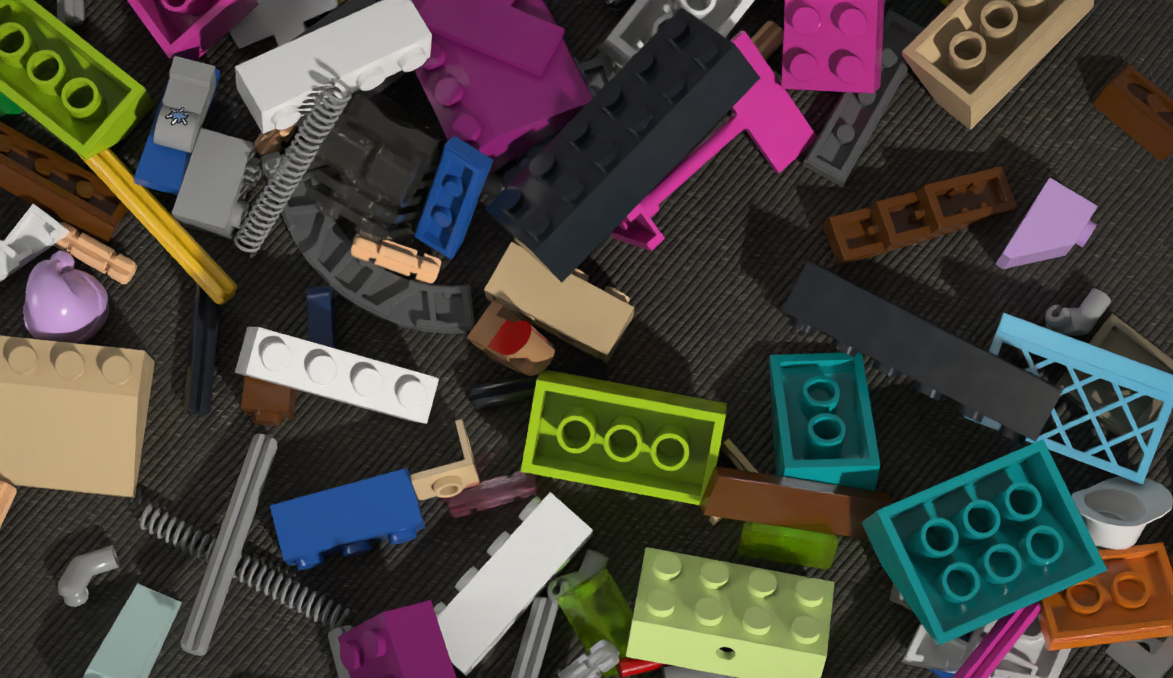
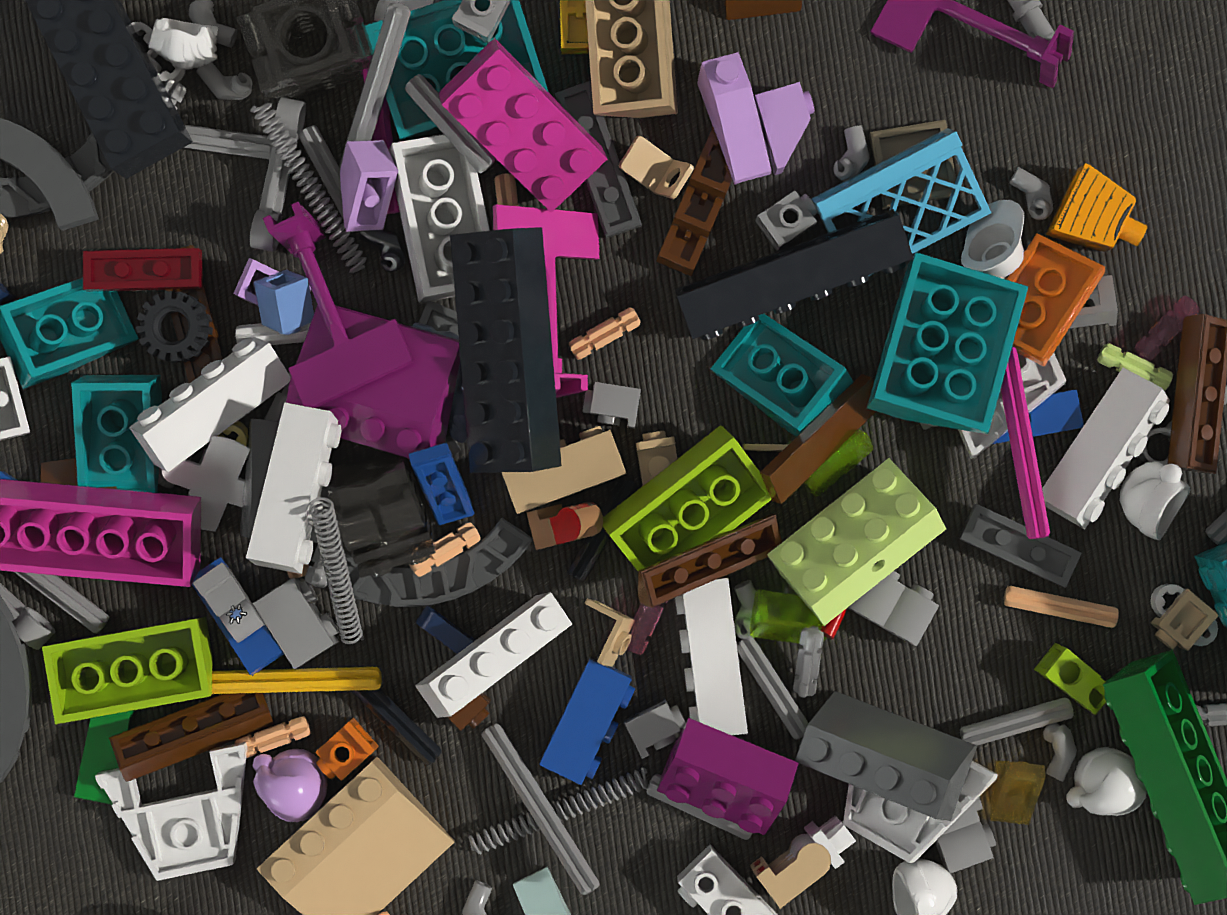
camera: 45 degrees left, 10 degrees up
(150, 332) = (355, 740): none -> orange brick
(394, 583) = (655, 727): none -> light grey brick
(592, 495) = (708, 561): none -> reddish brown slope
(650, 368) = (655, 454): none -> tan bracket
(660, 294) = (612, 404): none -> light grey brick
(716, 234) = (604, 333): none -> light nougat axle
(903, 148) = (654, 168): none -> tan bracket
(953, 316) = (777, 229): none -> light grey brick
(1013, 177) = (734, 116): none -> lavender slope

